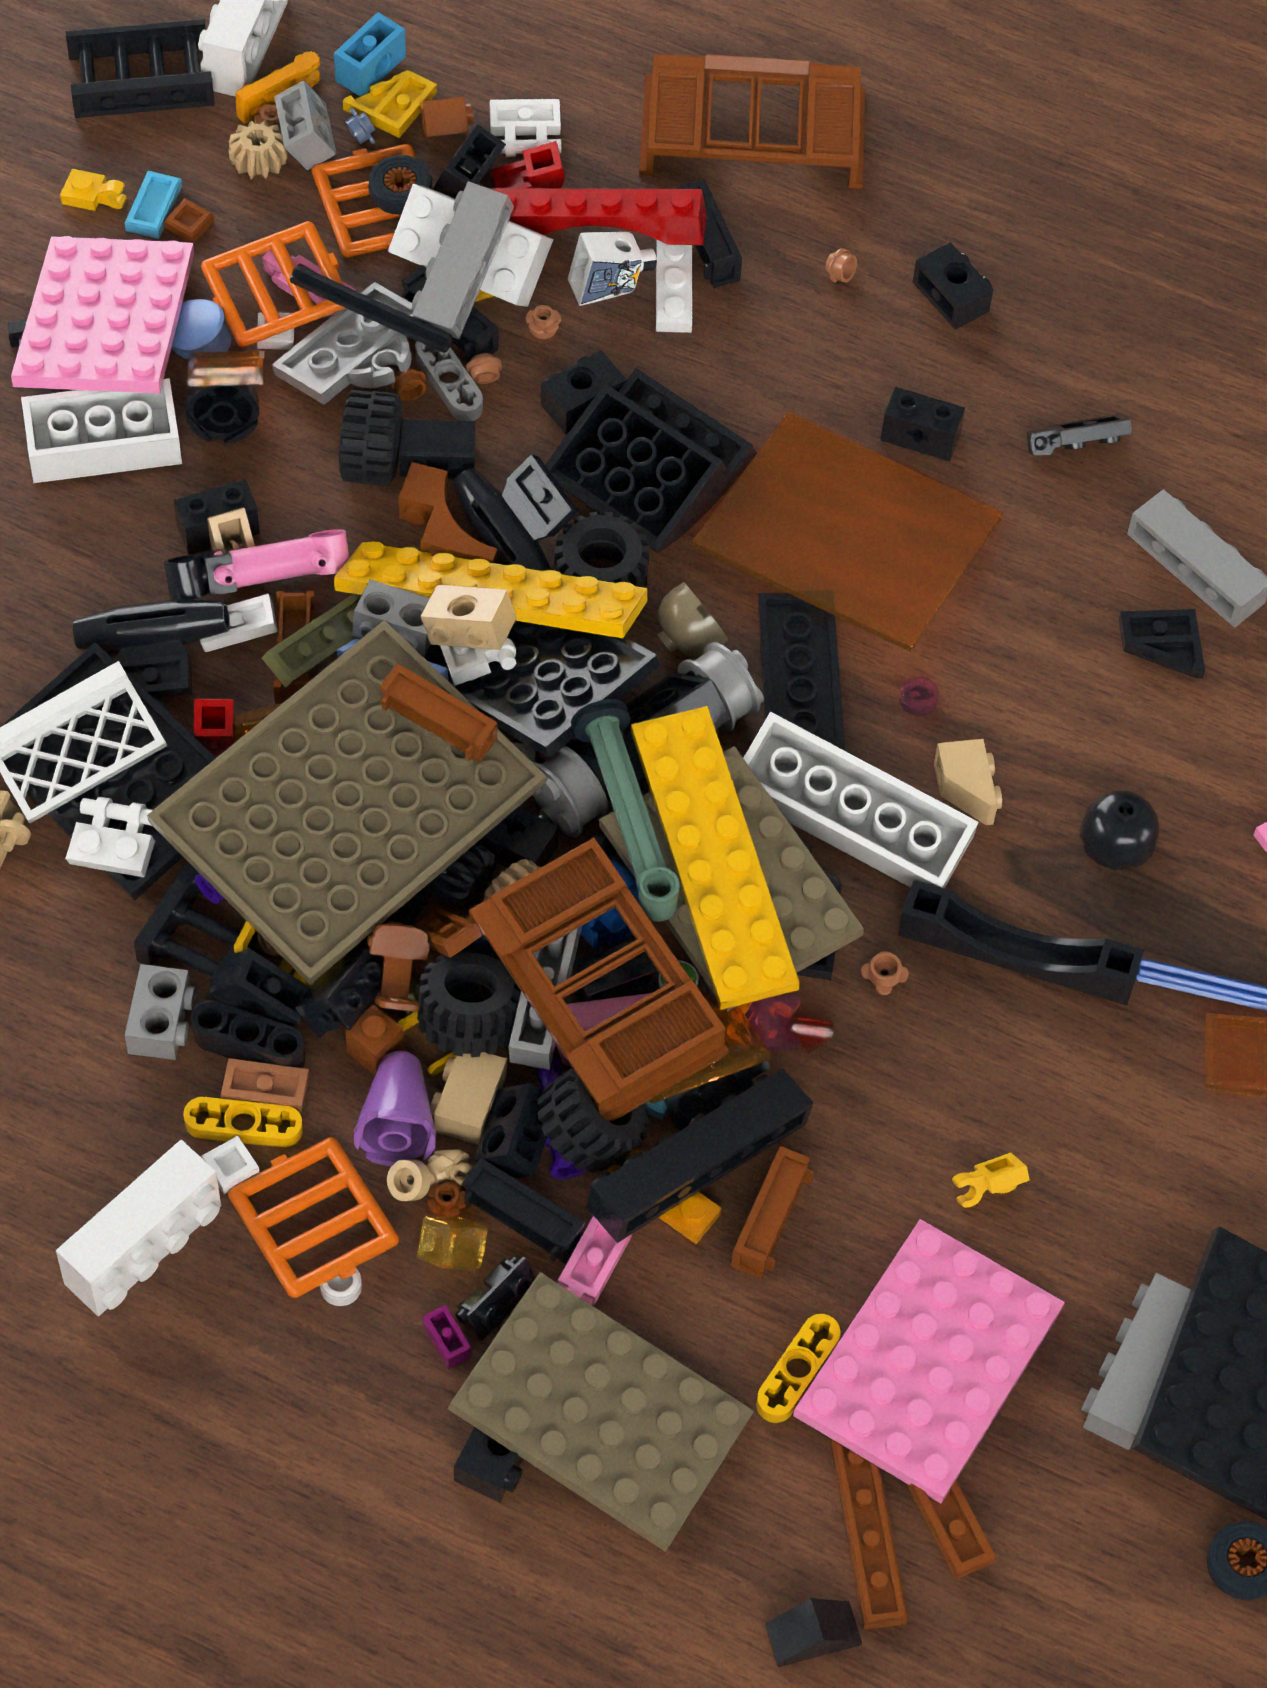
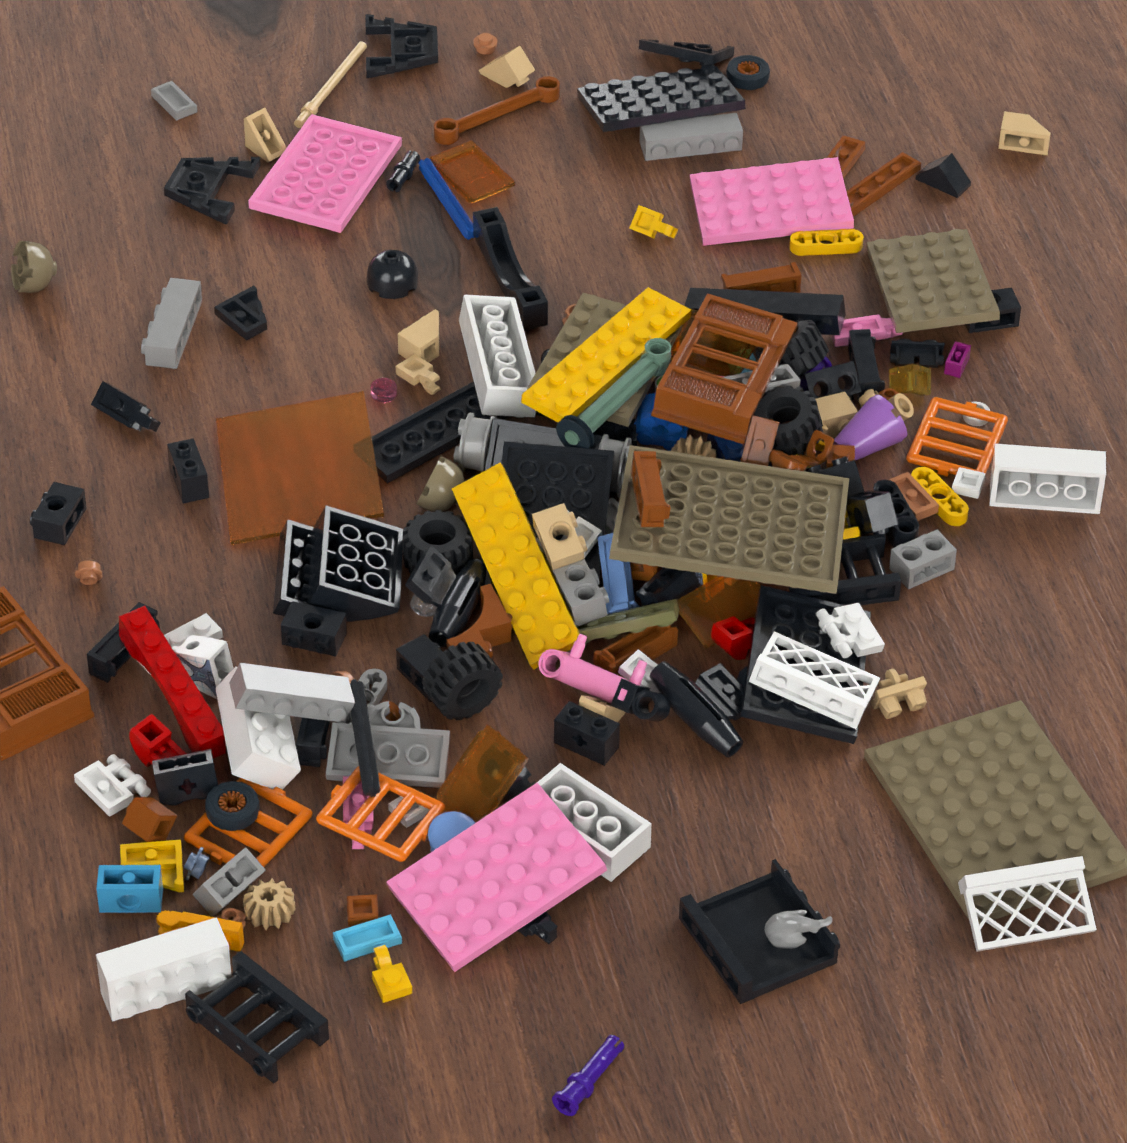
camera: 125 degrees left, 15 degrees down
(916, 737) = (418, 370): none -> tan plate

